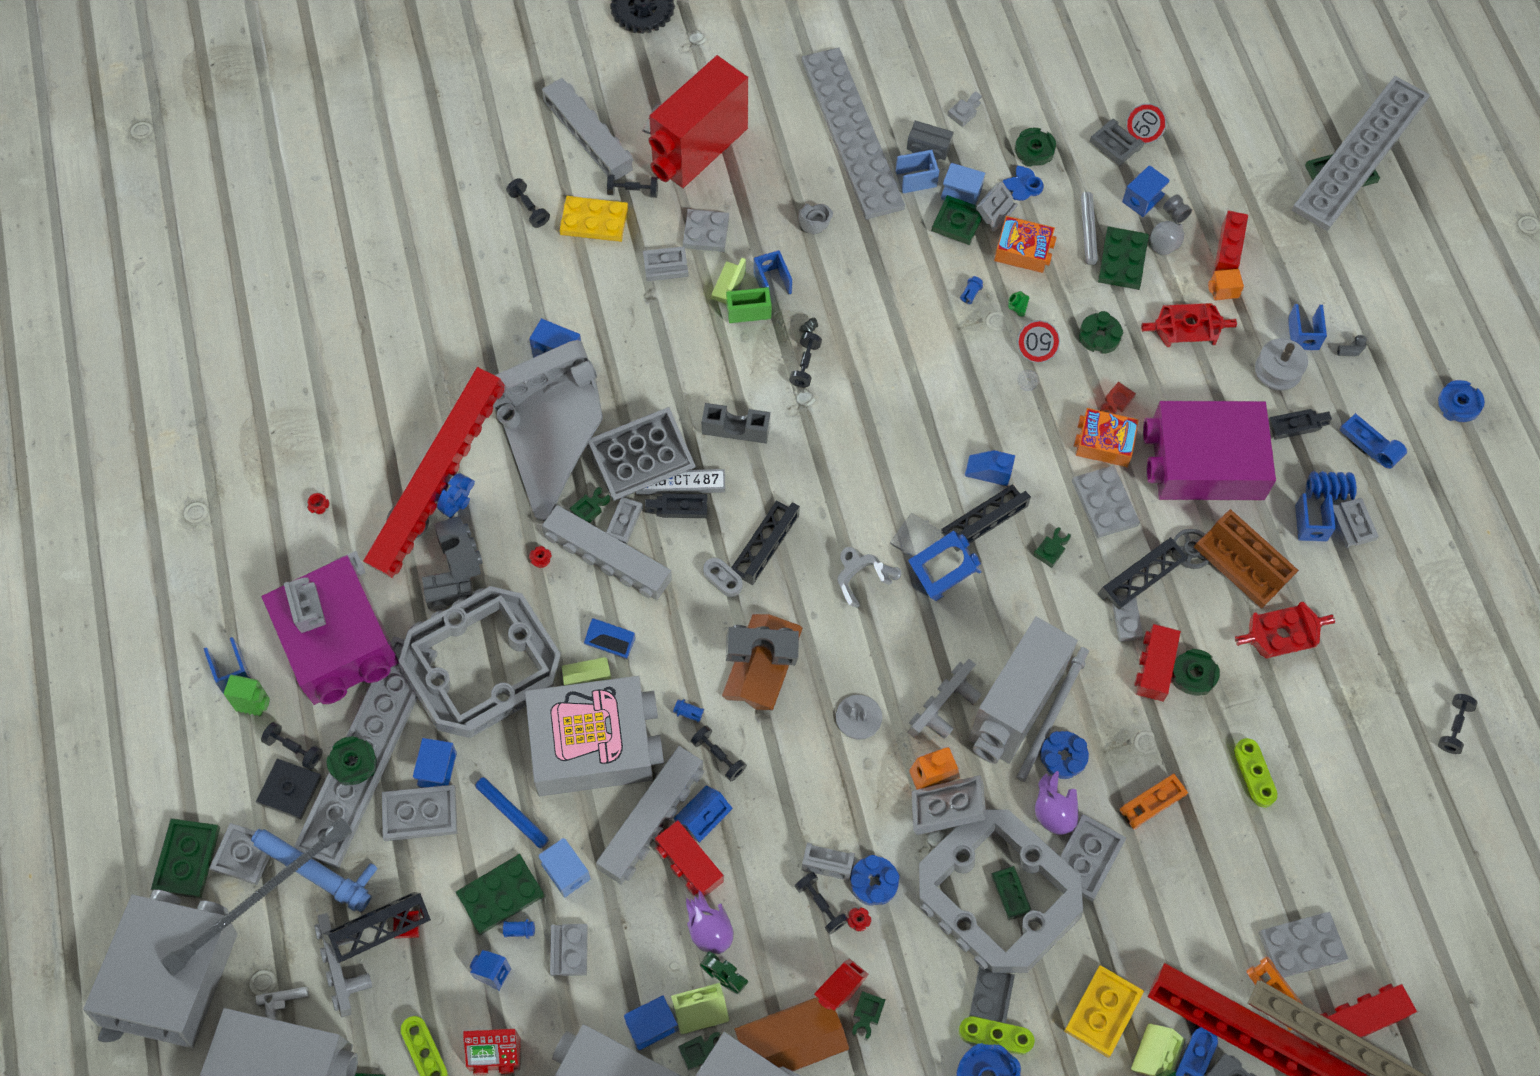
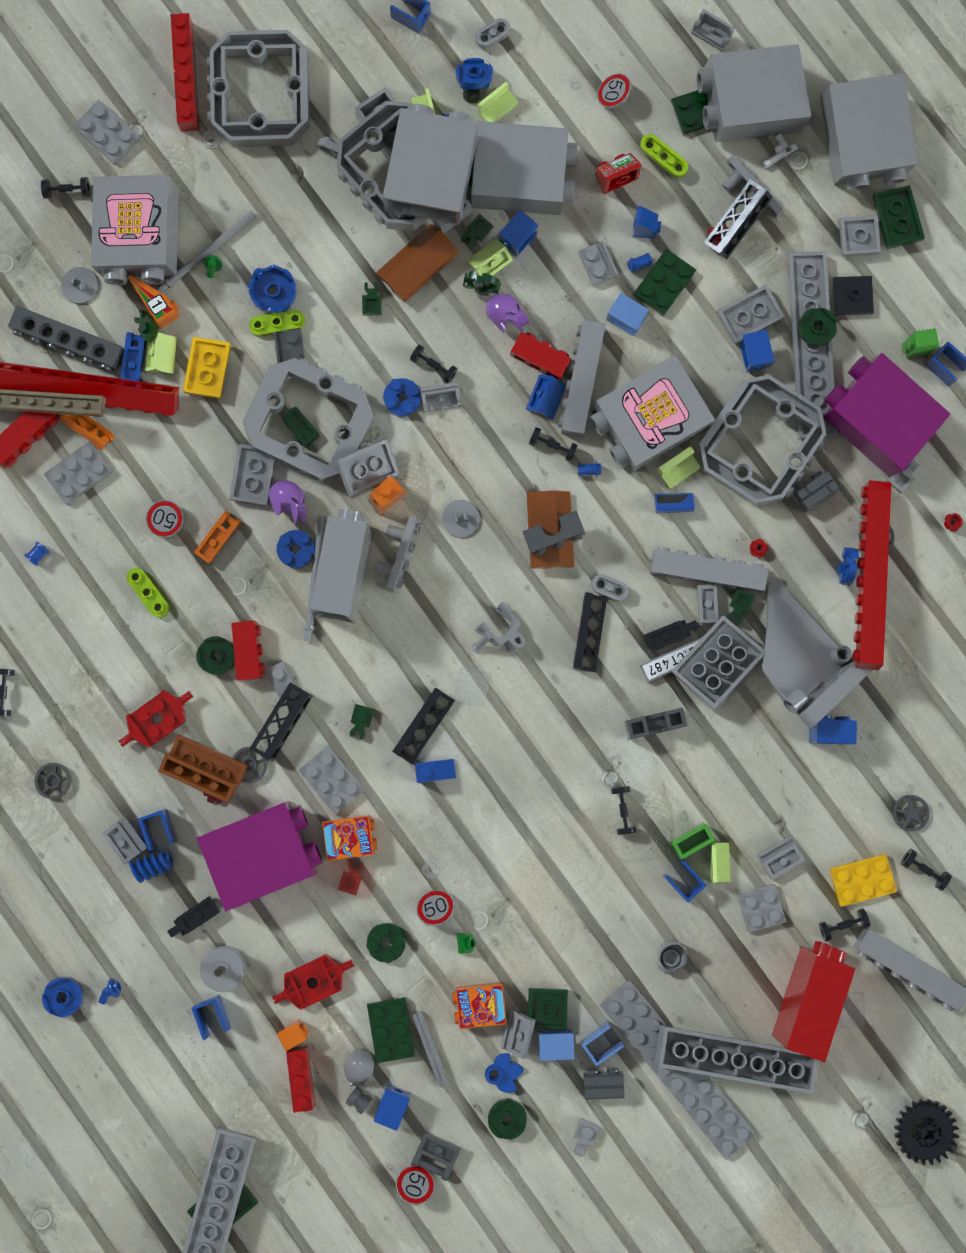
camera: 160 degrees right, 20 degrees up
(177, 960) = (858, 129): dark grey hose -> none
(272, 734) = (887, 327): black wheel -> none
(304, 604) = (912, 413): light grey hinge -> none
(343, 889) = (775, 238): medium blue cylinder -> none
(458, 548) = (813, 511): dark grey arch -> none
(512, 812) = (684, 342): blue axle -> none
(515, 257) = (910, 813): none -> dark grey wheel
(806, 115) = (734, 1059): none -> light grey brick
(809, 326) = (634, 845): pearl dark grey piece -> none
(841, 985) = (396, 302): red slope -> none
(859, 925) = (402, 369): red plate -> none
(969, 565) = (449, 648): blue panel -> none
(972, 289) = (510, 939): blue pin -> none
(1211, 845) = (164, 518): none -> piece
(1355, 348) = (165, 1015): dark grey arm -> none
(1373, 443) = (128, 924): blue plate -> none
(1379, 865) = (37, 553): none -> blue bush
(1407, 387) = (113, 989): none -> blue plate
(1420, 612) = (52, 780): none -> dark grey wheel

